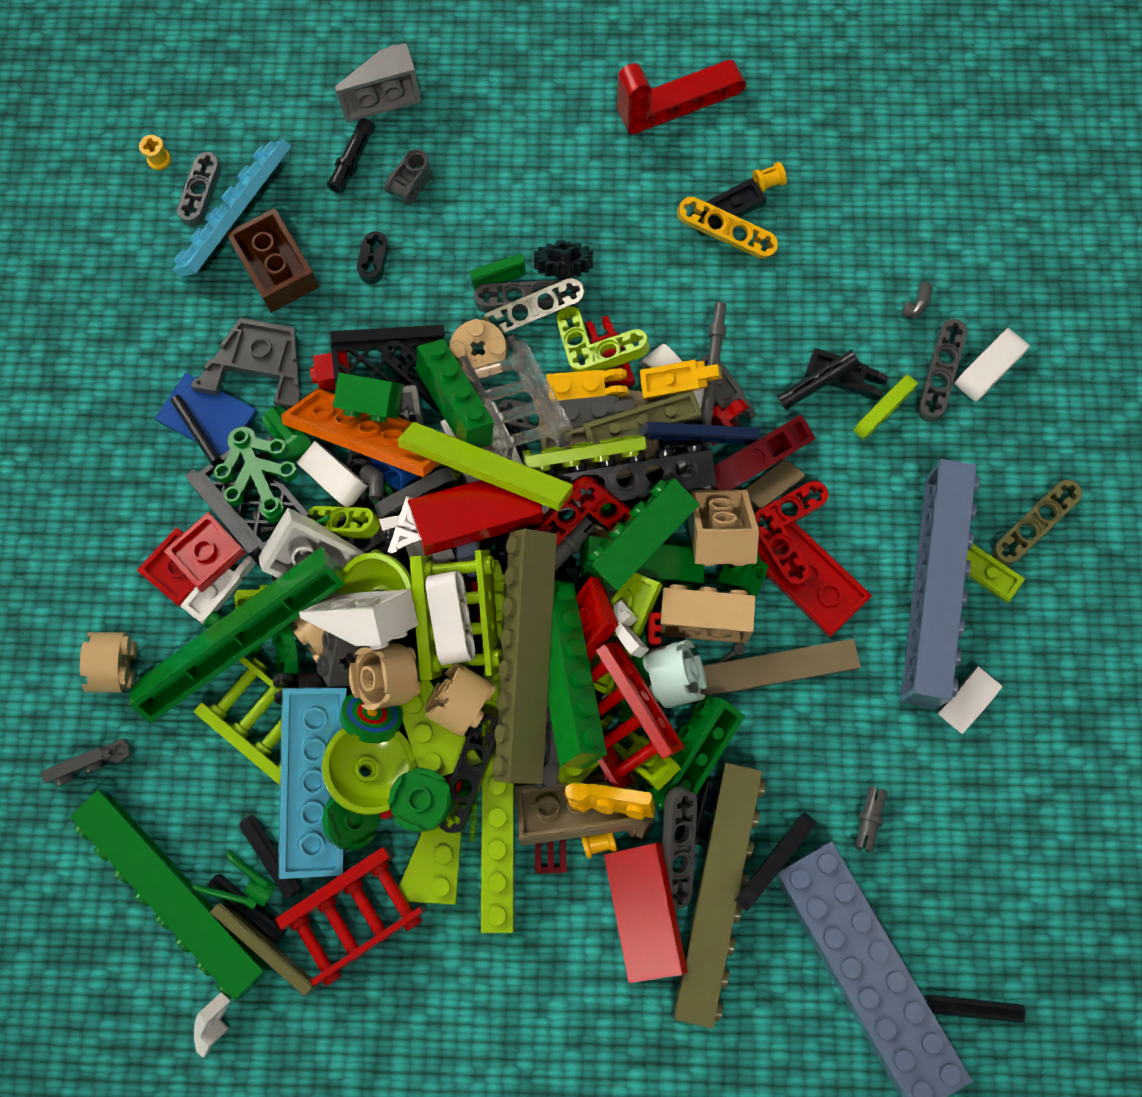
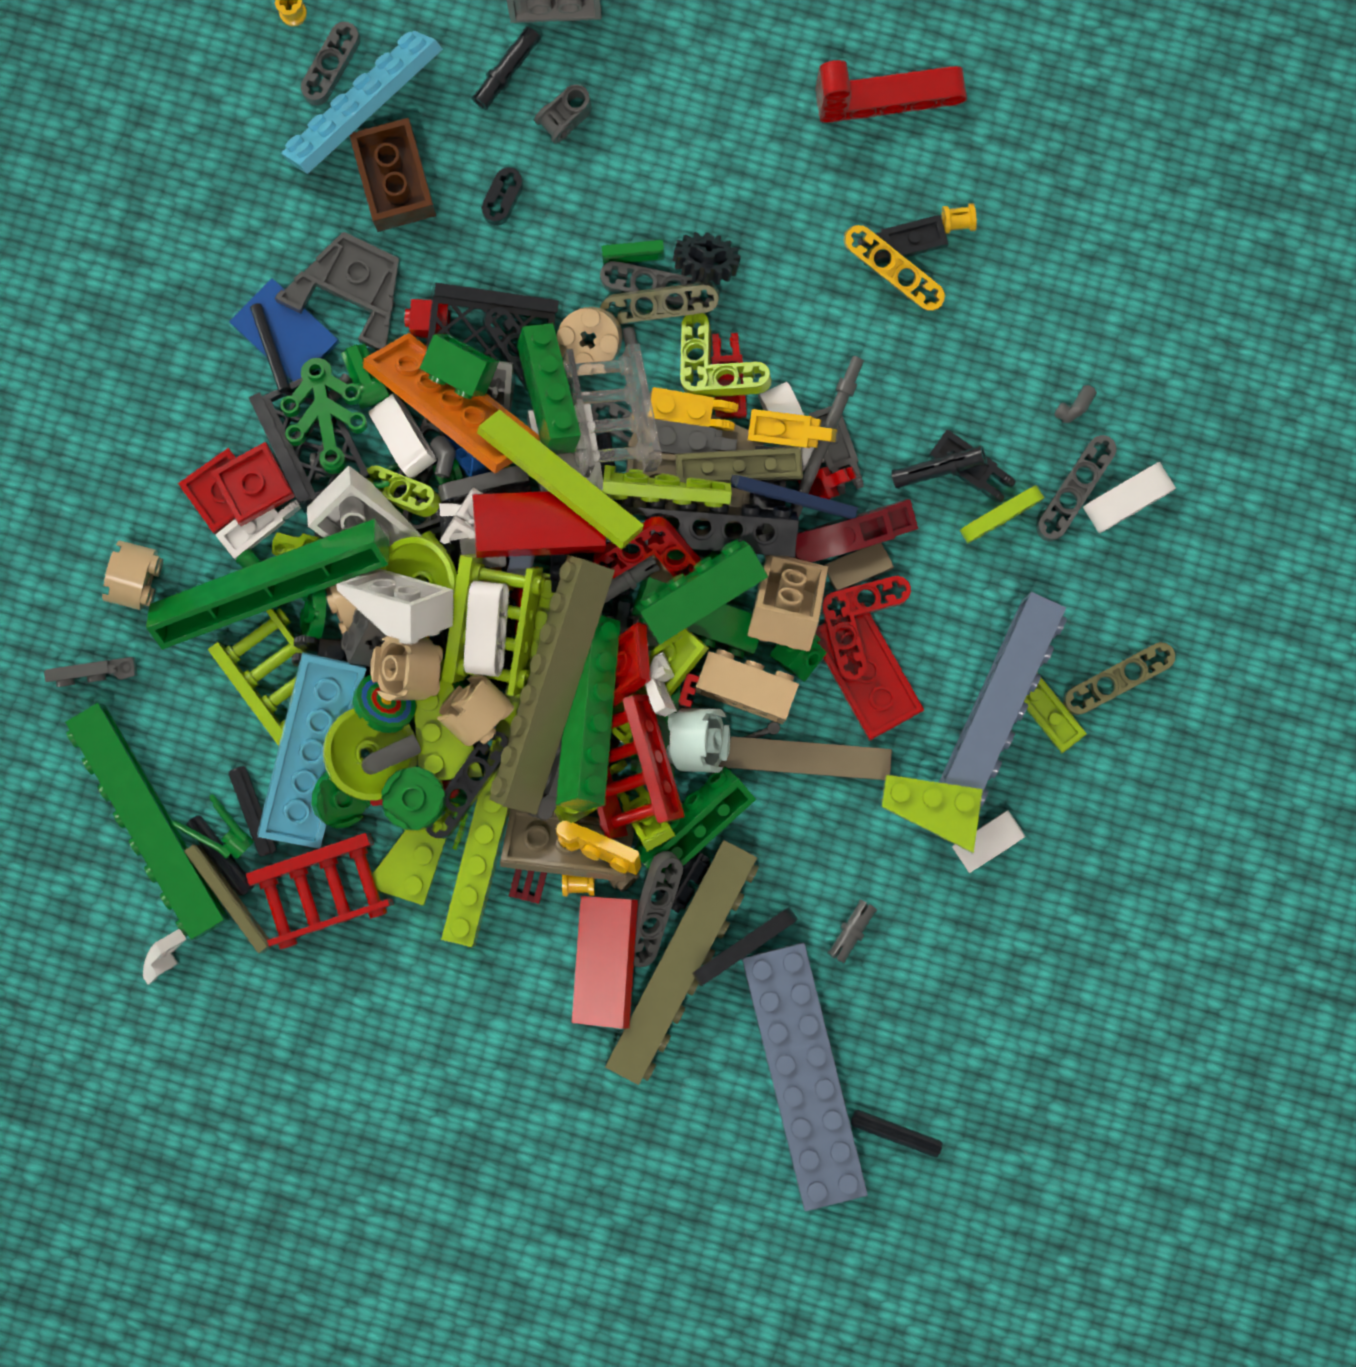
camera: 10 degrees right, 10 degrees up
(389, 764) = (391, 755): none -> dark grey bar
(921, 675) = (935, 806): none -> lime wing

